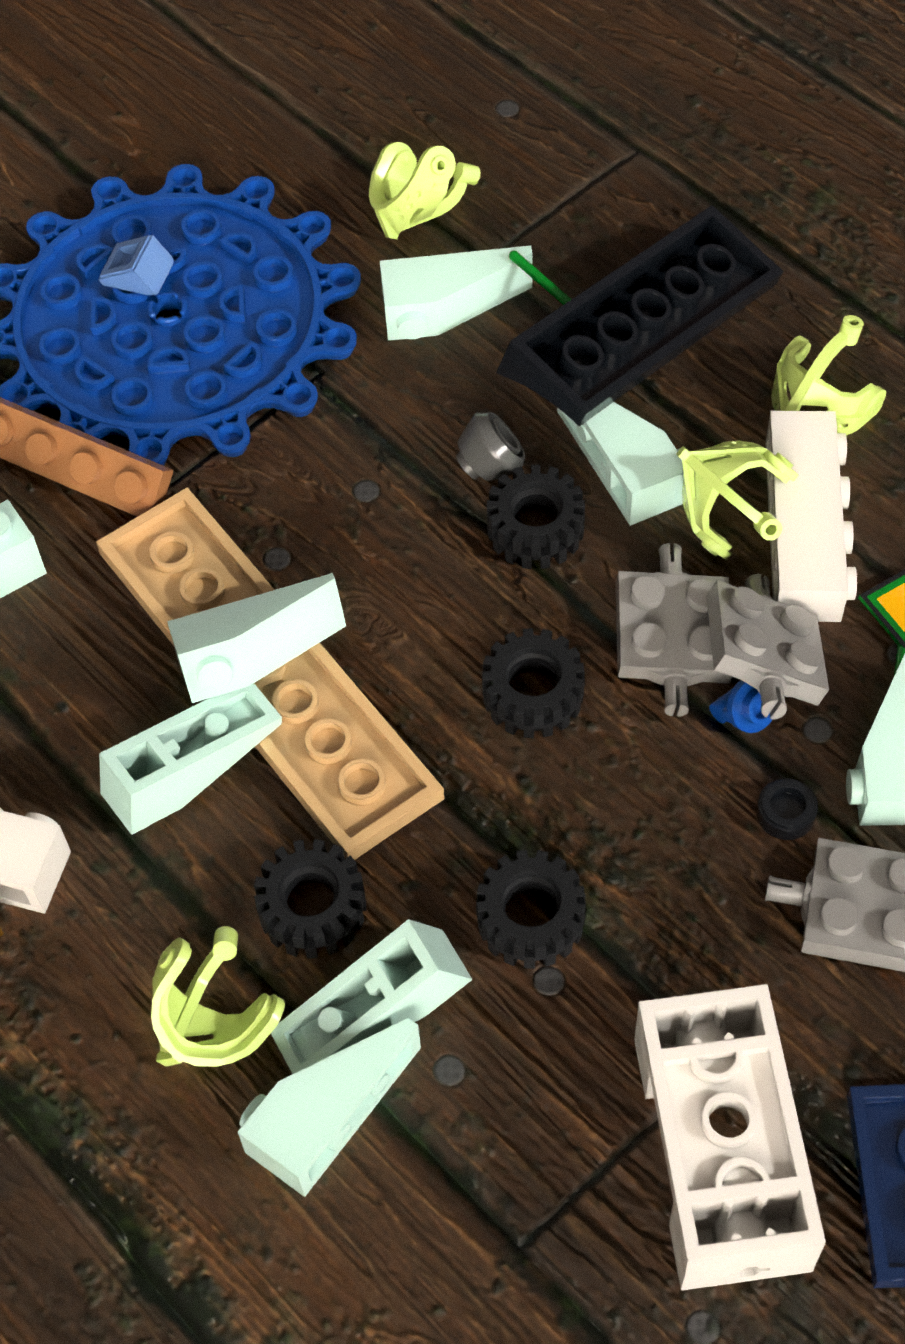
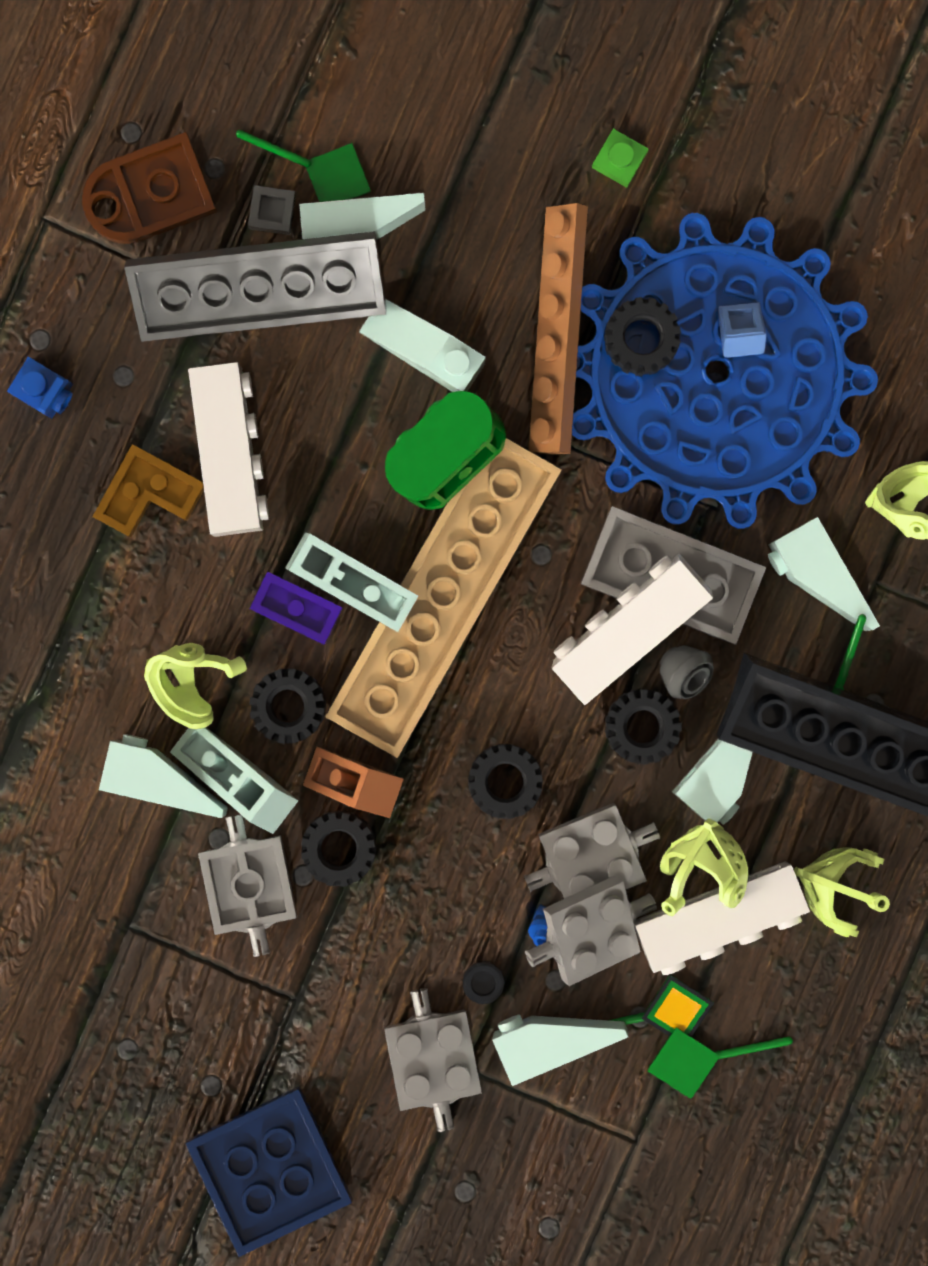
camera: 60 degrees right, 30 degrees up
(79, 327) = (649, 311): none -> black tyre
(90, 588) = (445, 450): none -> green brick
(189, 840) = (296, 608): none -> dark purple plate
(254, 636) = (437, 582): light aqua slope -> none
(371, 429) = (634, 545): none -> light grey plate
(410, 473) = (631, 628): none -> white brick
(449, 854) = (353, 782): none -> nougat slope
(529, 1045) = (248, 885): none -> light grey plate
(743, 1200) = (263, 1003): white plate -> none

